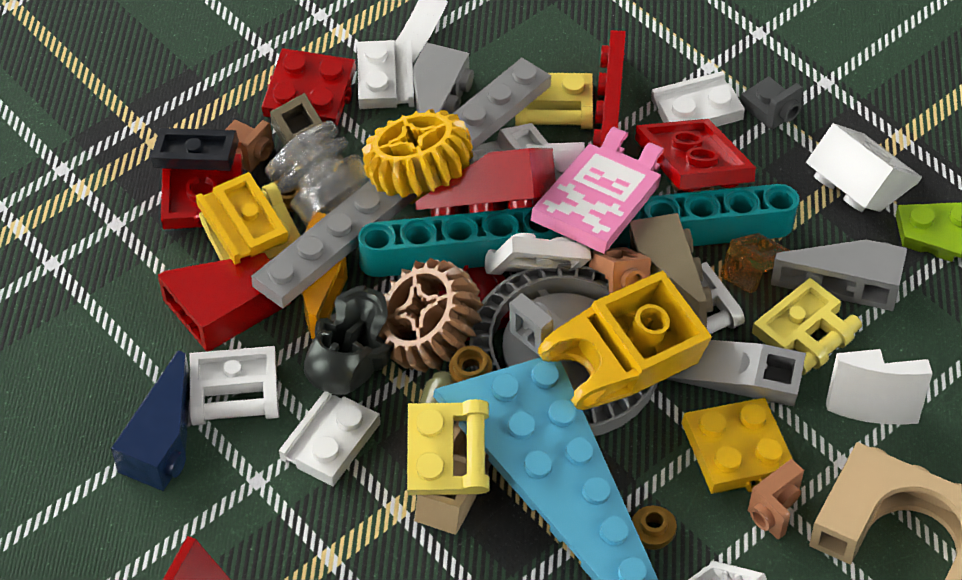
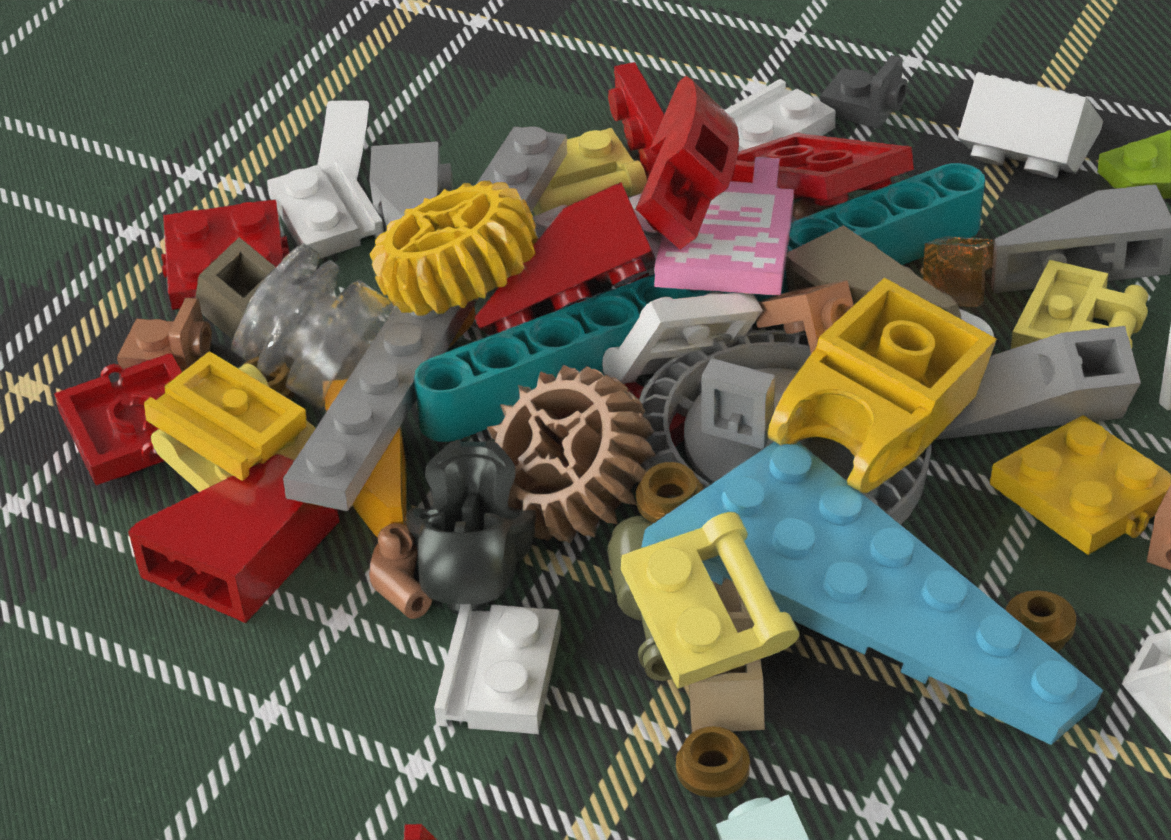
camera: 20 degrees left, 10 degrees down
(156, 436) = (231, 752): dark blue slope -> none
(195, 149) = (103, 359): black plate -> none
(233, 373) = (311, 629): white plate -> none
(297, 350) = (394, 570): none -> nougat arm
(414, 534) = (712, 748): none -> pearl gold plate
(593, 139) = (692, 166): none -> red slope

